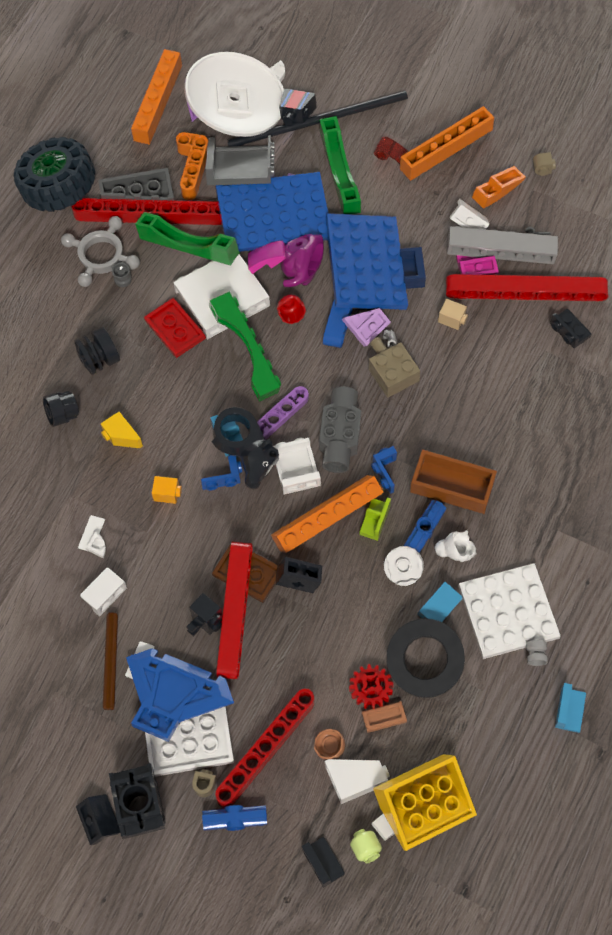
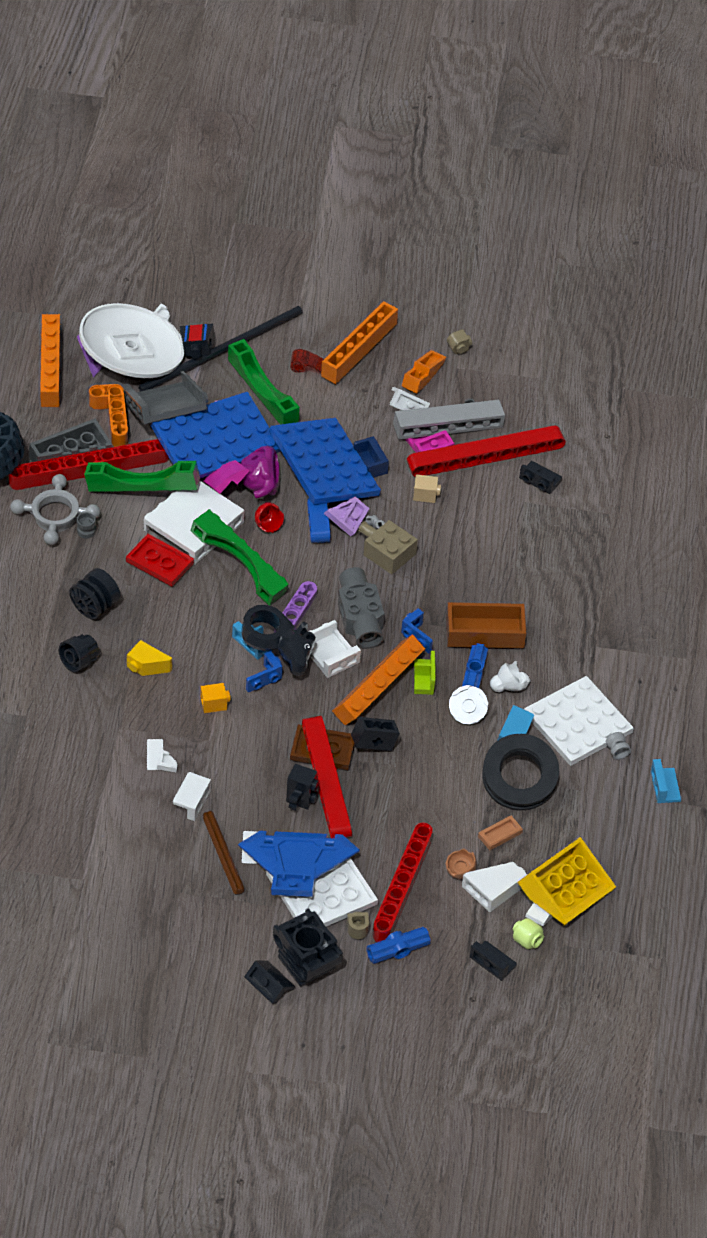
camera: 25 degrees left, 15 degrees down
(371, 695) = (479, 809): red gear -> none

